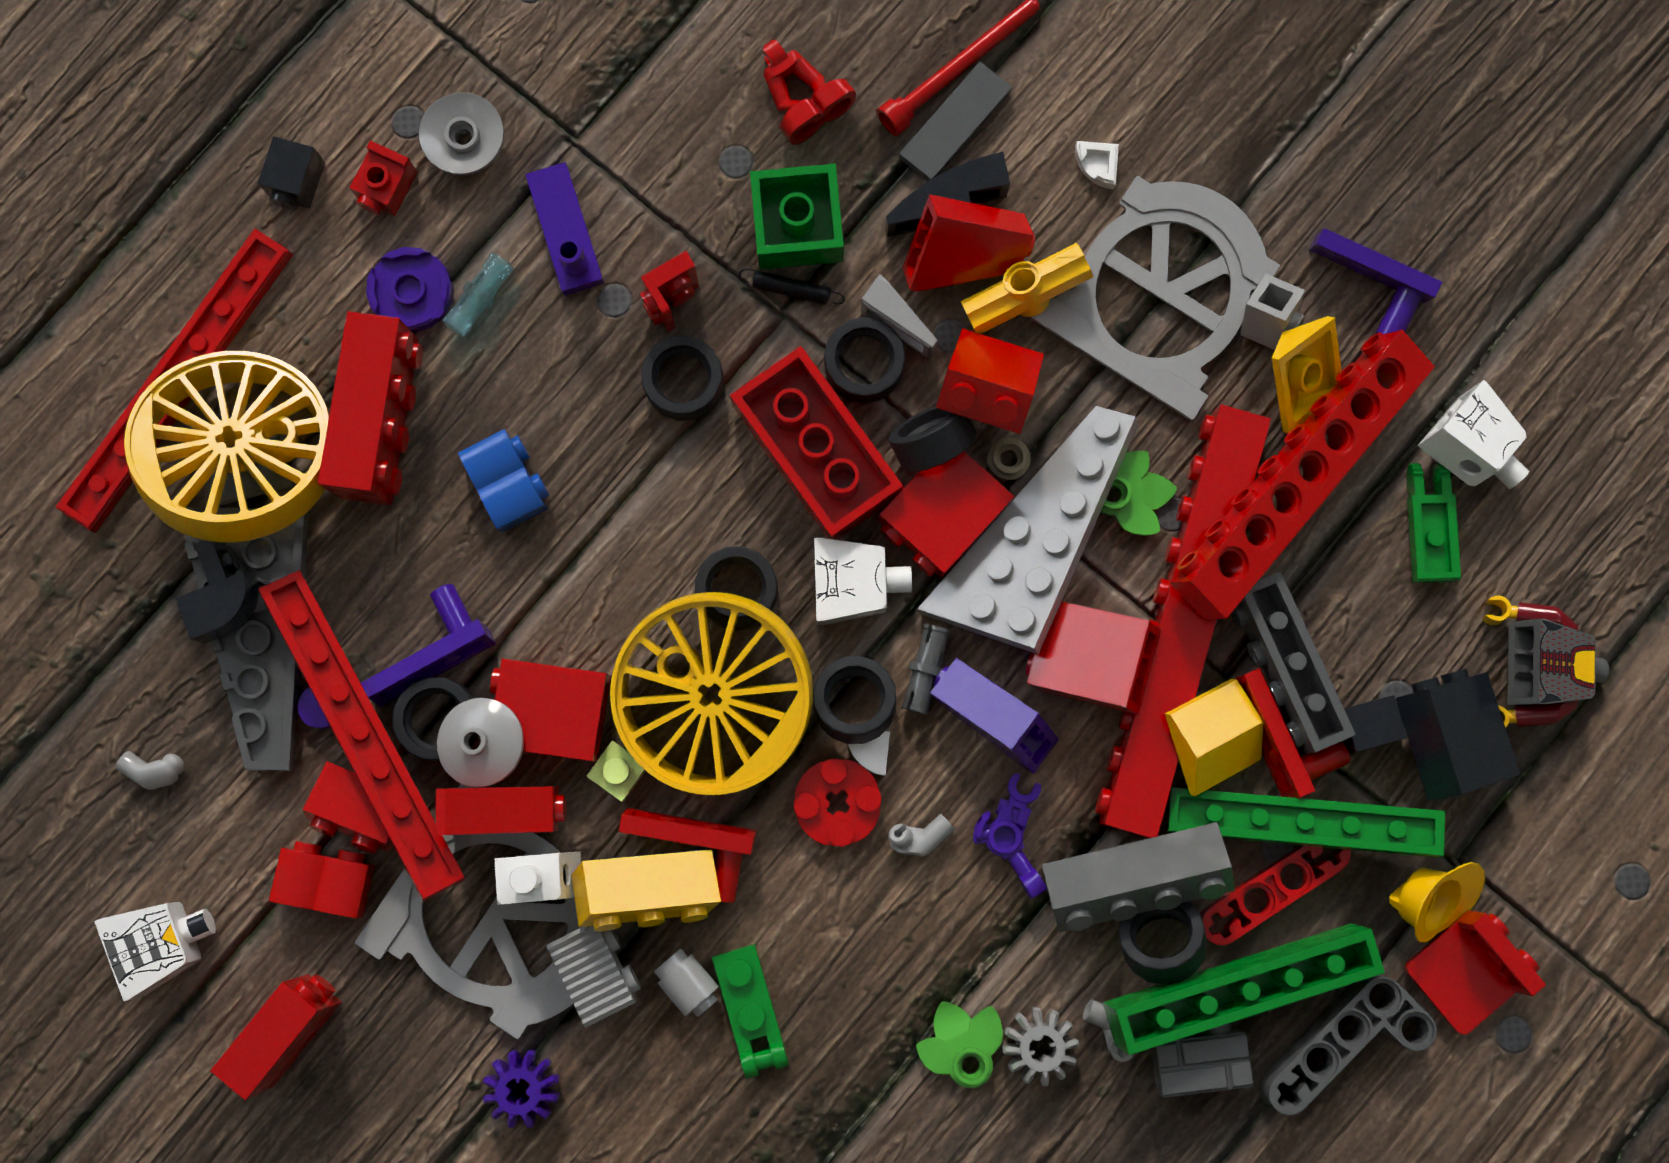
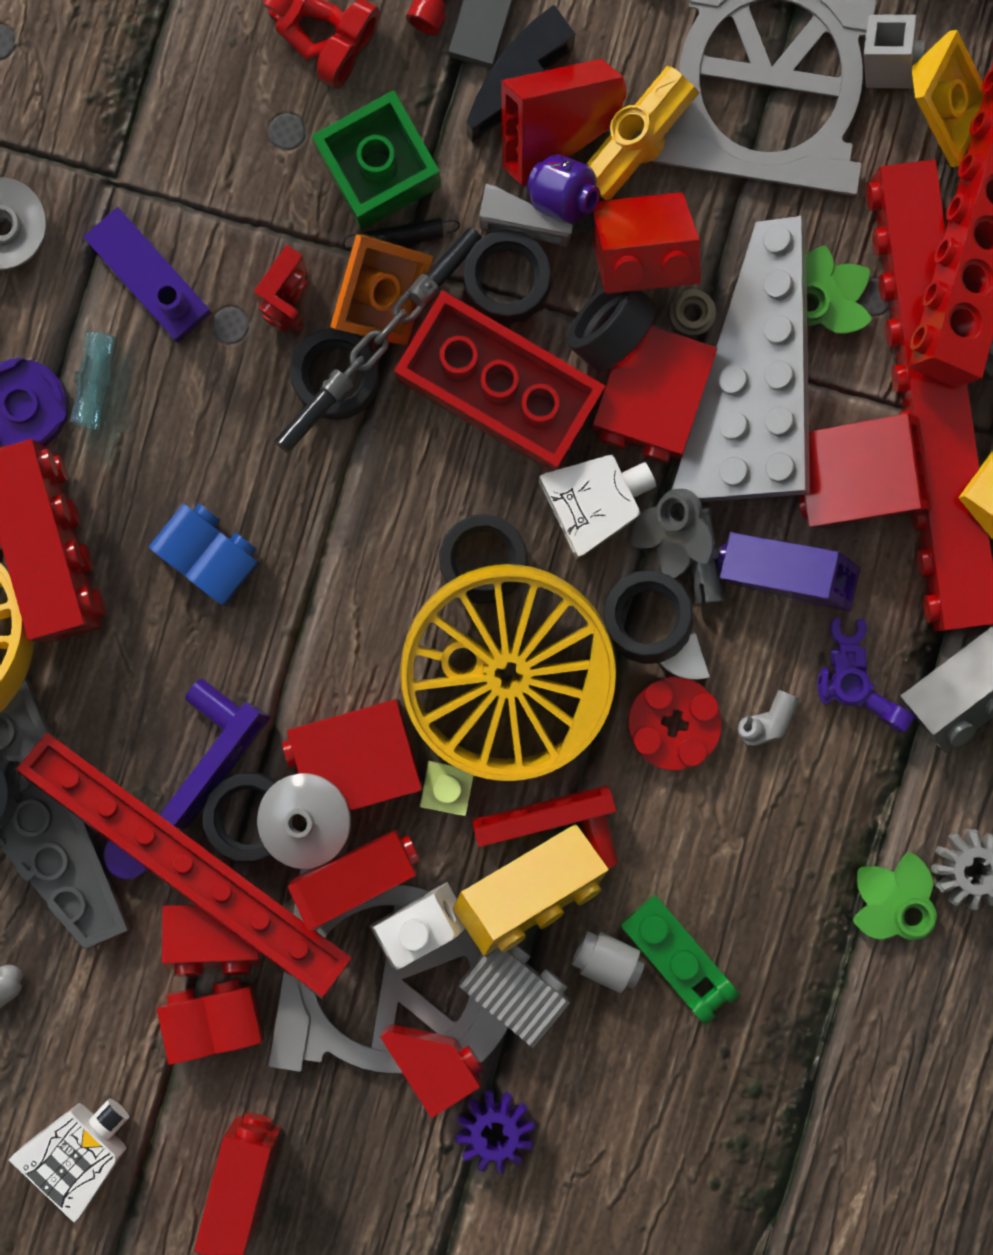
camera: 25 degrees left, 5 degrees up
(493, 1005) = (433, 1066): none -> red slope
(678, 386) = (421, 294): none -> piece
(751, 324) = (373, 283): none -> orange slope
(908, 641) = (675, 538): none -> dark grey plate
(942, 306) = (563, 188): none -> dark purple head

